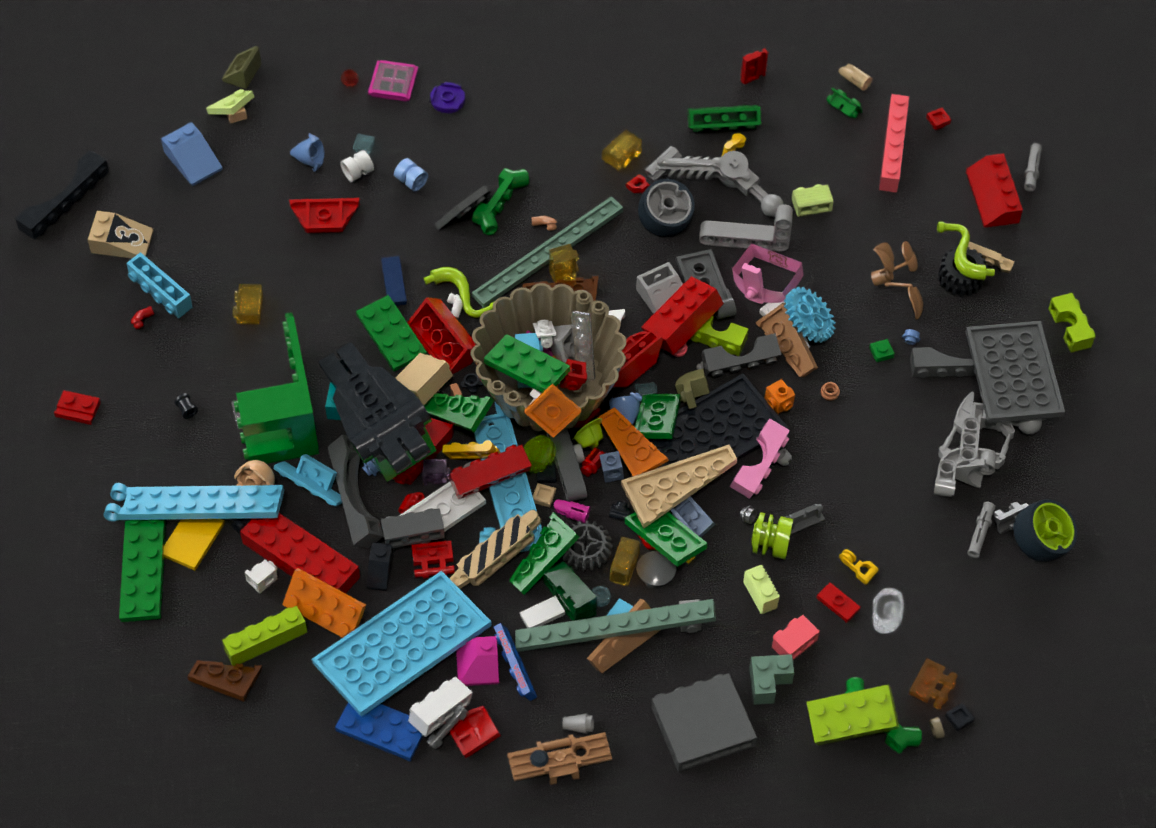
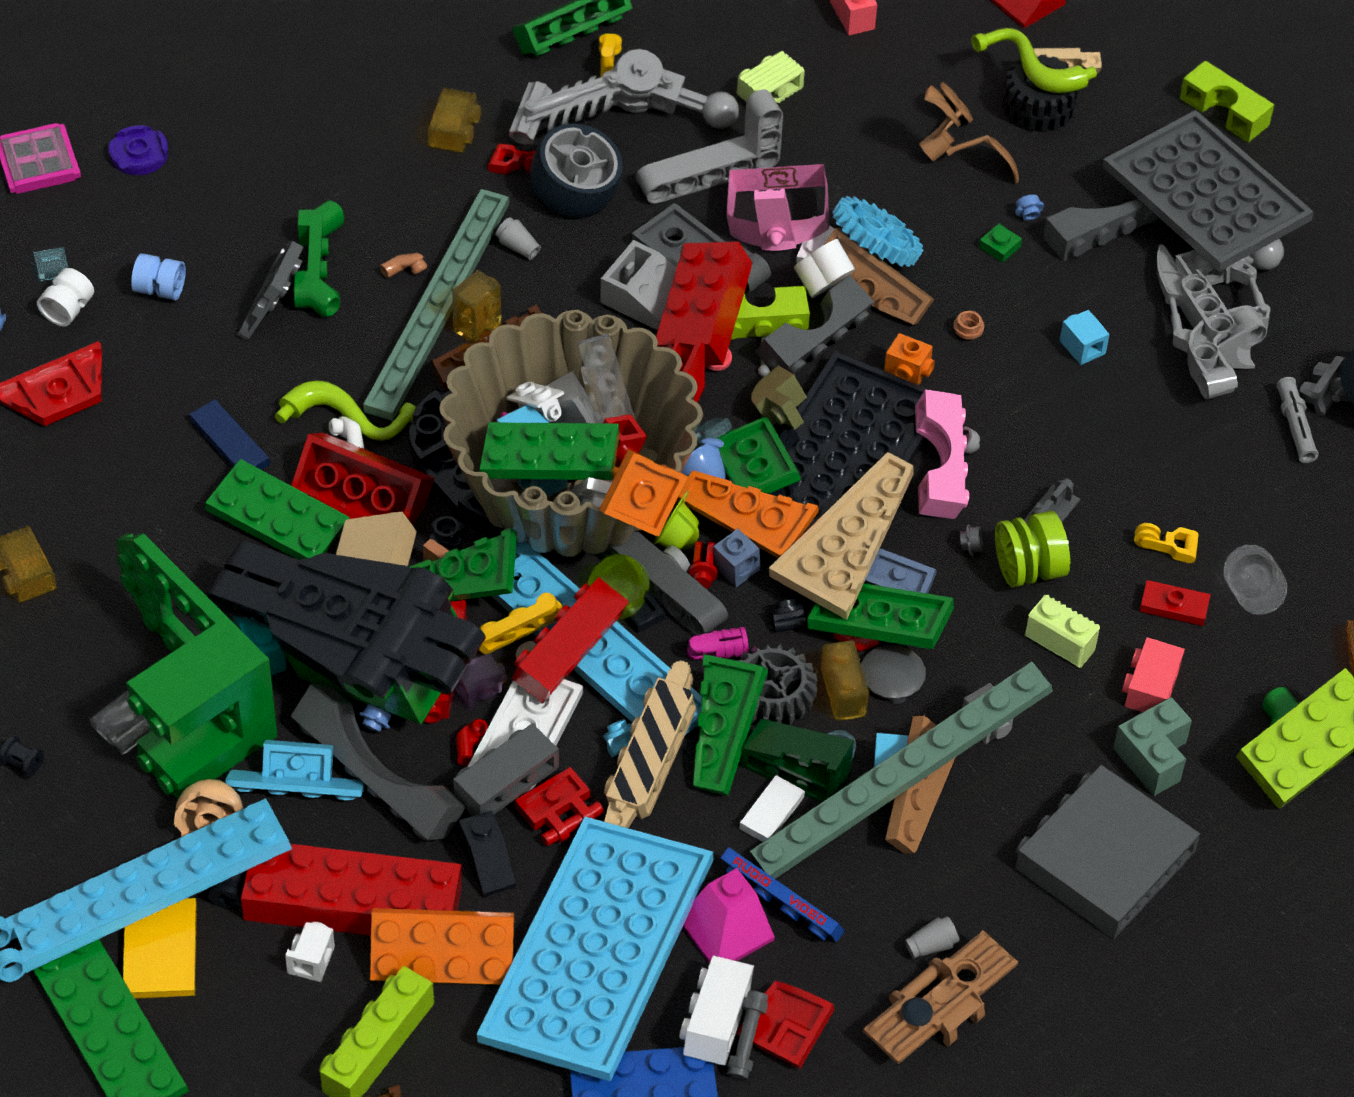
camera: 30 degrees left, 5 degrees down
(544, 495) = (661, 642): tan tile -> none
(613, 232) = (517, 238): none -> light grey cone
(762, 323) = (824, 268): none -> white piece
(890, 426) = (1084, 337): none -> medium azure brick

